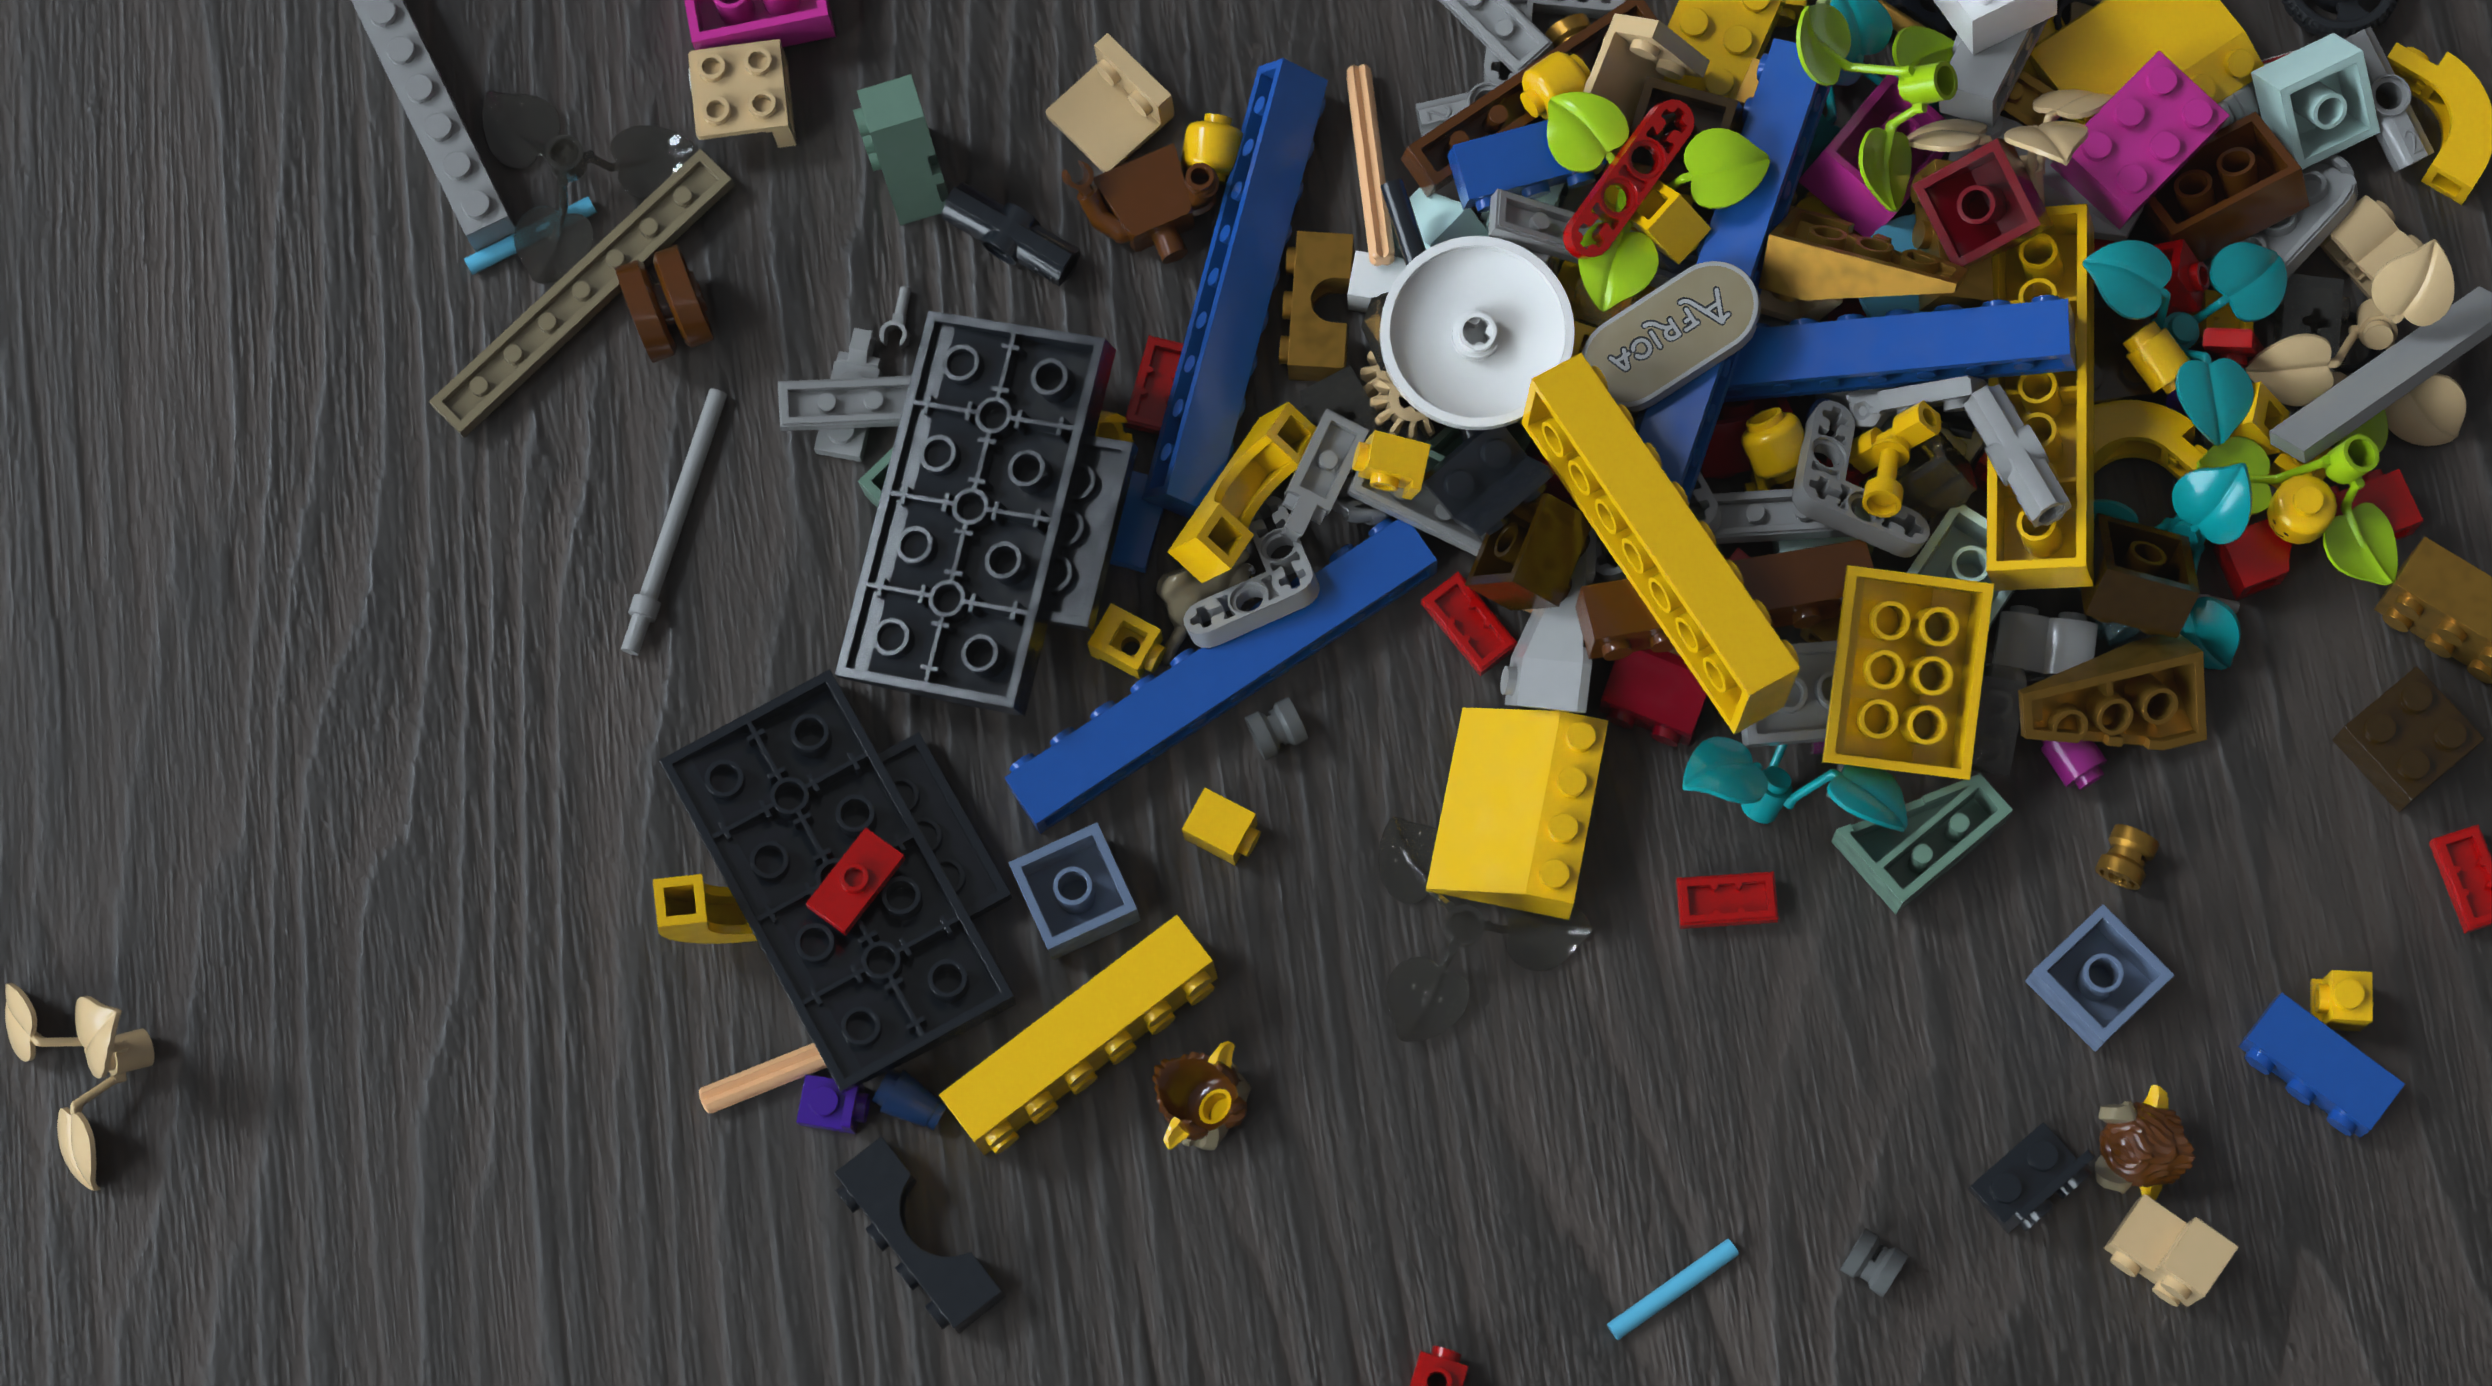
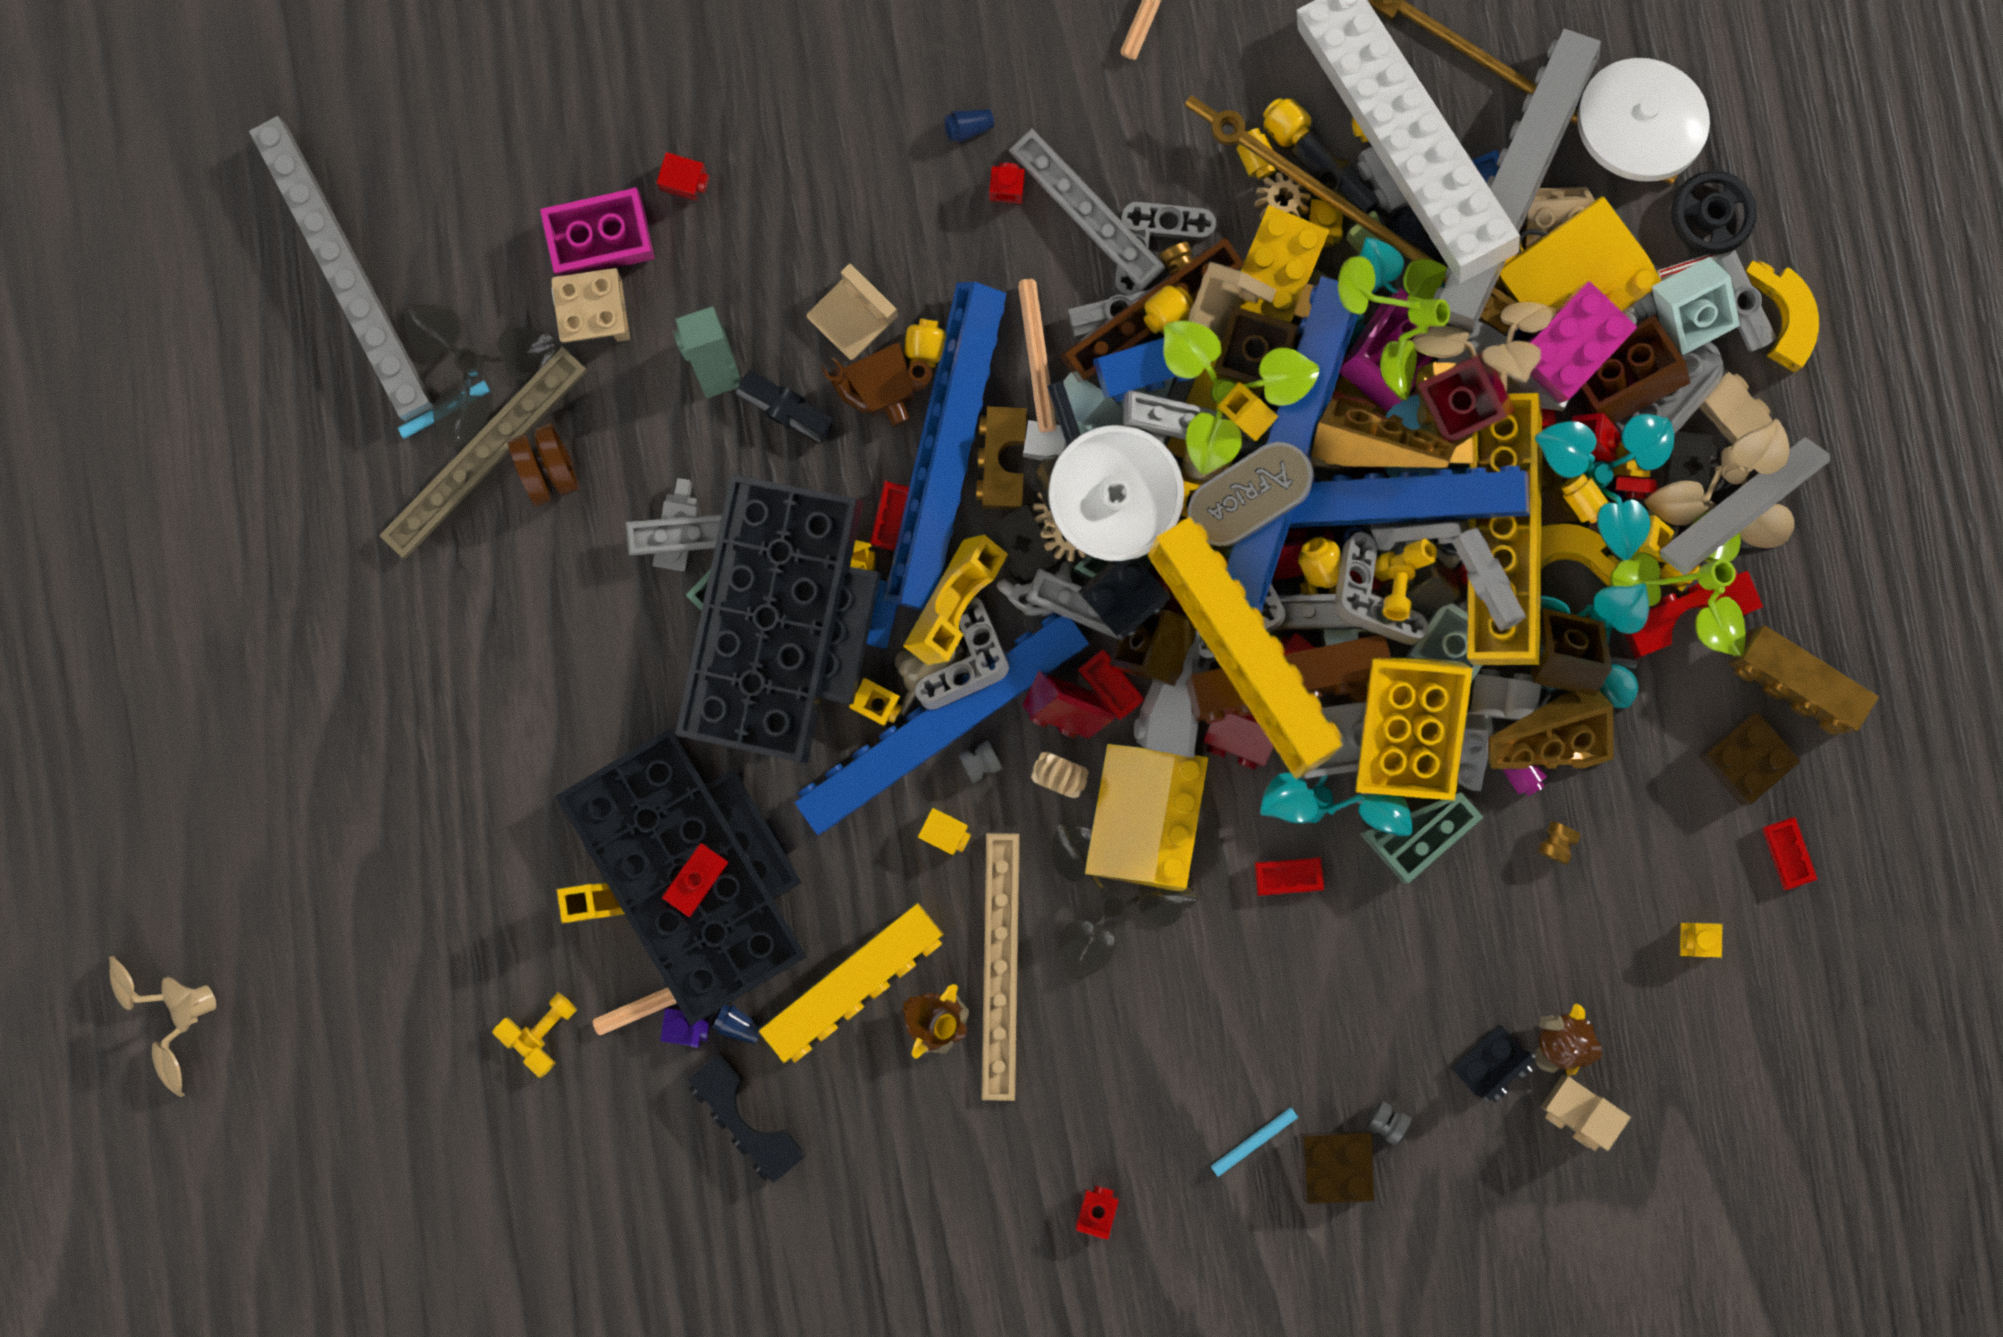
camera: 10 degrees left, 10 degrees up
(605, 1119) = (529, 1041): none -> yellow bar
(645, 605) = (538, 680): light grey bar -> none
(898, 319) = (708, 468): light grey hand -> none
(1075, 891) = (845, 880): sand blue brick -> none
(1299, 1027) = (1000, 967): none -> tan tile
(1321, 472) = (1008, 585): light grey hinge -> none
(1391, 745) = (1059, 774): none -> tan gear
(1392, 462) = (1057, 582): yellow brick -> none
(1401, 647) = (1066, 707): none -> dark red slope
(1628, 179) = (1225, 388): red beam -> none
(1797, 1325) = (1337, 1167): none -> dark brown brick
(2099, 977) = (1540, 928): sand blue brick -> none
(2301, 509) = (1681, 604): yellow head -> none
(2320, 1067) = (1685, 985): blue brick -> none

